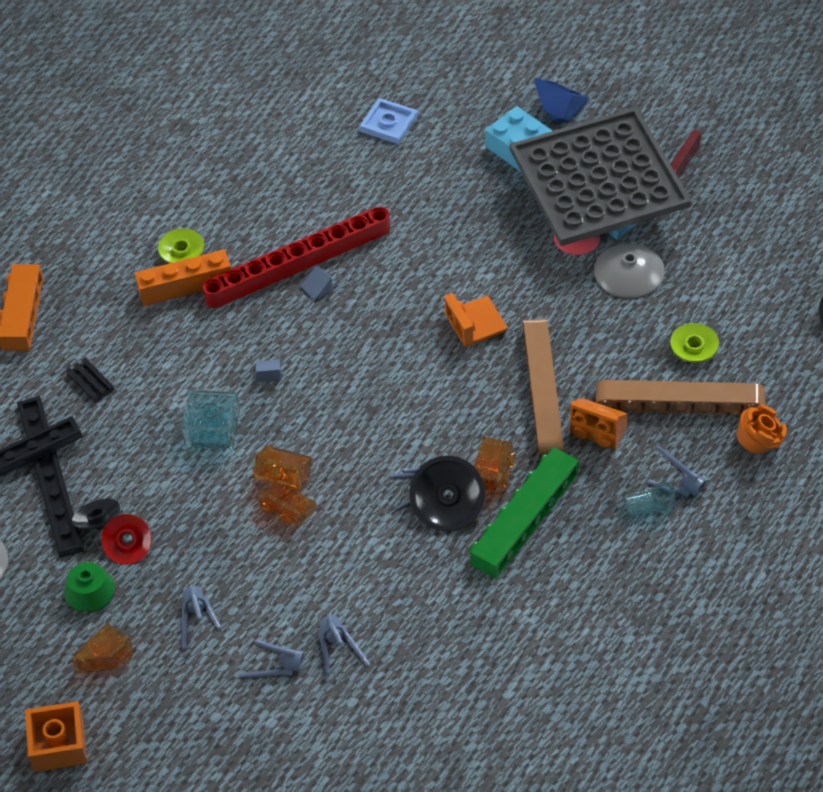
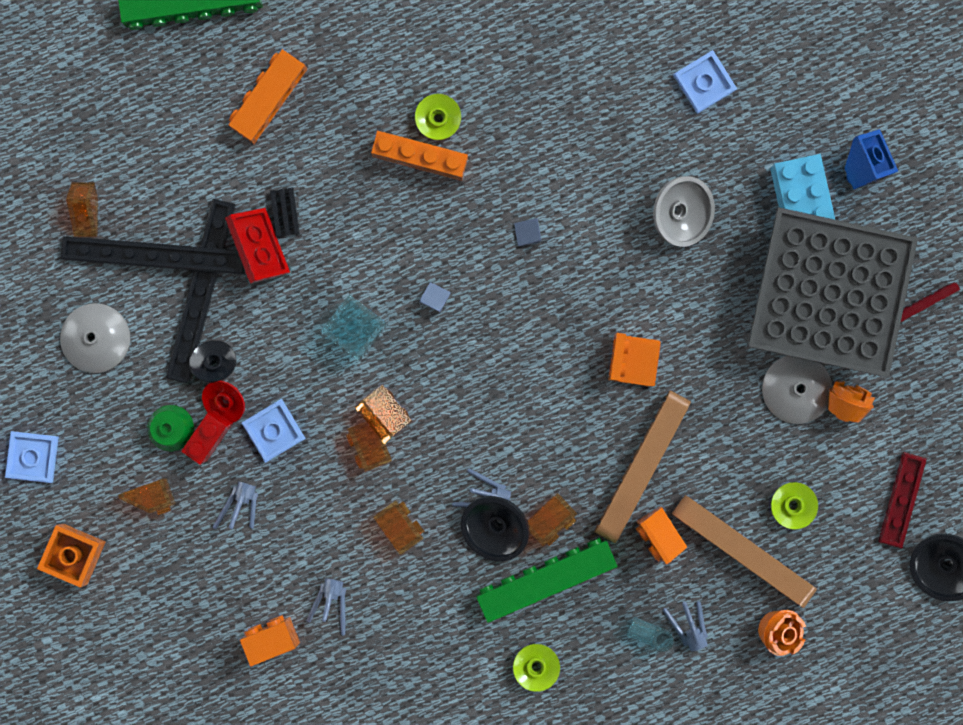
camera: 30 degrees right, 35 degrees up
(80, 406) = (257, 245): none -> red plate
(129, 571) = (207, 437): none -> red brick
(189, 541) = (273, 430): none -> light blue tile
(289, 658) = (284, 596): sand blue plant -> none
(296, 257) = (540, 190): red beam -> none
(300, 693) = (269, 641): none -> orange brick
(358, 545) = (399, 527): none -> clear orange brick
(436, 198) = (693, 213): none -> light grey dish
(568, 573) = (540, 679): none -> lime dish
(677, 247) = (849, 402): none -> orange cone
(781, 296) = (902, 500): none -> dark red tile

